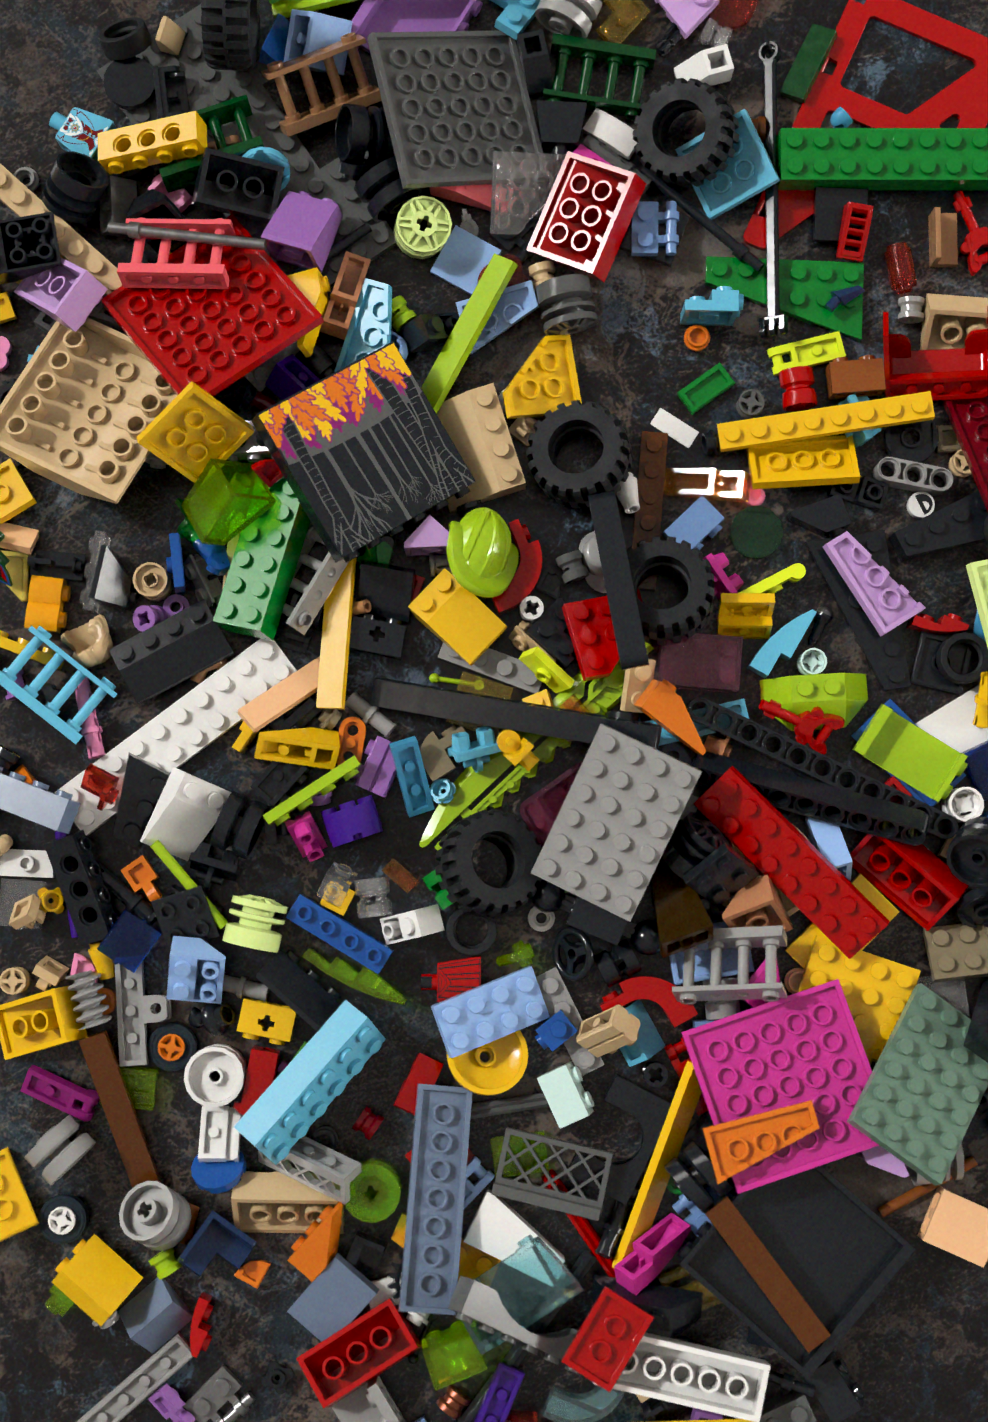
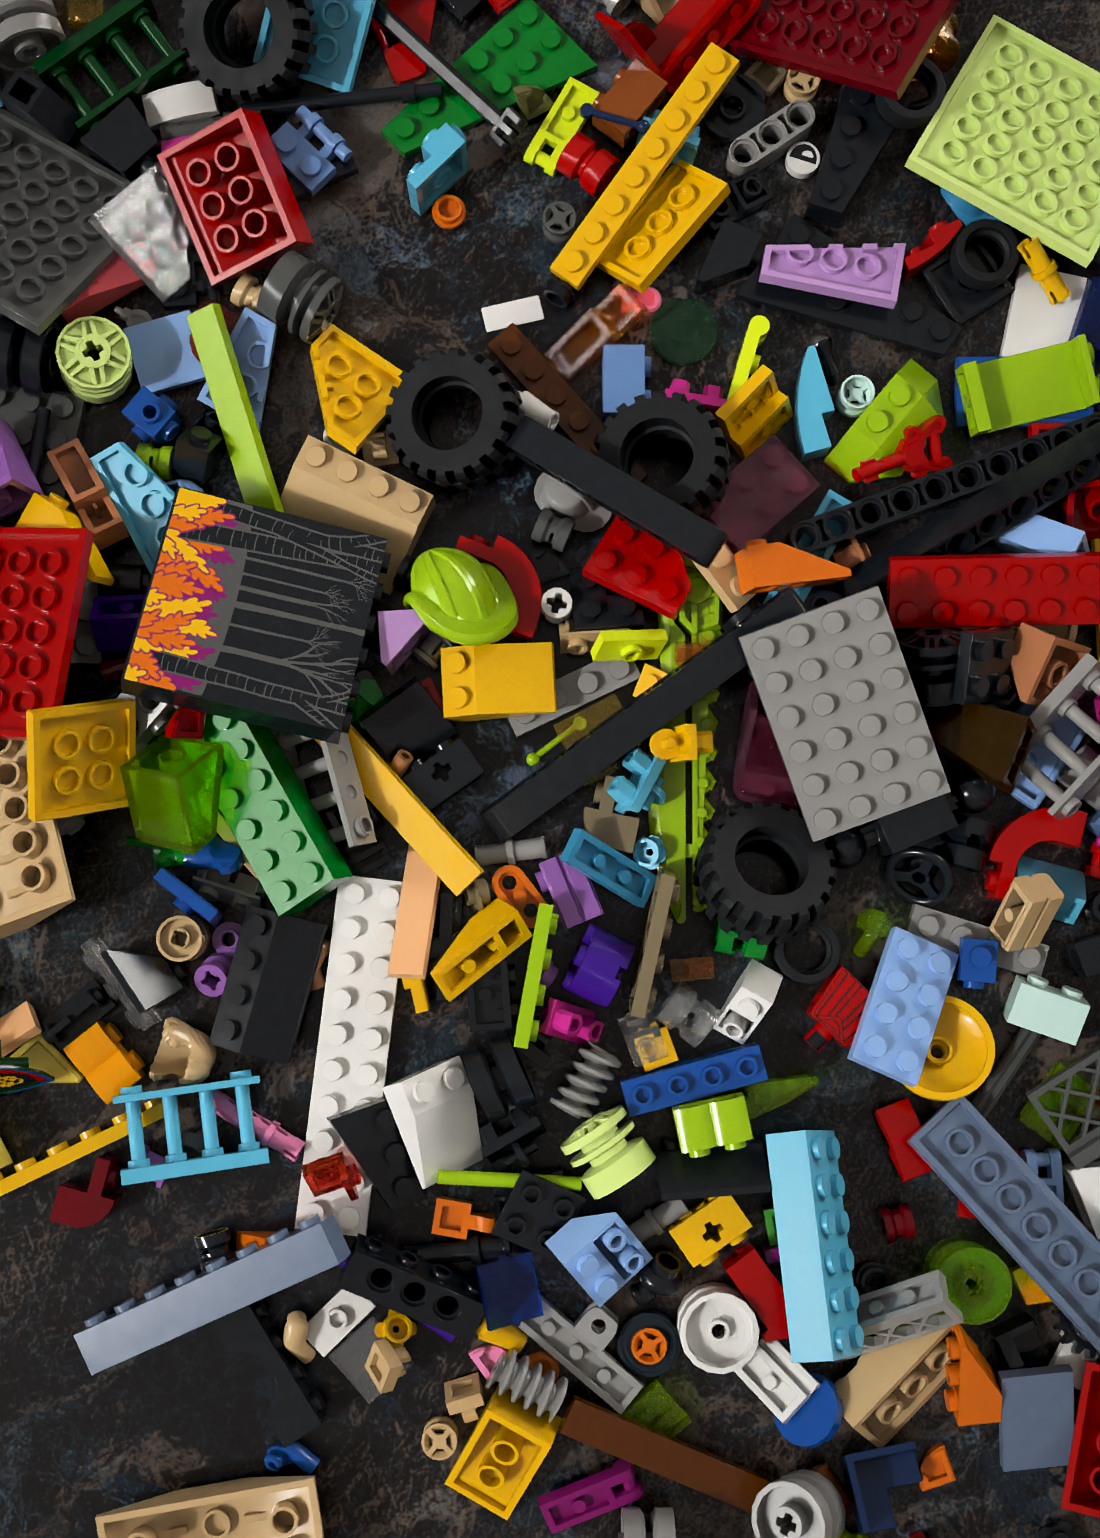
camera: 50 degrees left, 0 degrees up
(283, 876) = (586, 1081): none -> light grey piece
(324, 965) = (712, 1124): none -> lime brick
(402, 834) = (651, 955): none -> dark tan plate
(422, 289) = (153, 417): none -> blue brick
(550, 918) = (864, 880): white plate -> none
(706, 388) = (504, 249): green tile -> none
(805, 323) = (532, 101): none -> olive tile
(825, 361) = (588, 111): none -> dark blue hinge
(843, 296) = (542, 41): dark blue bar -> none

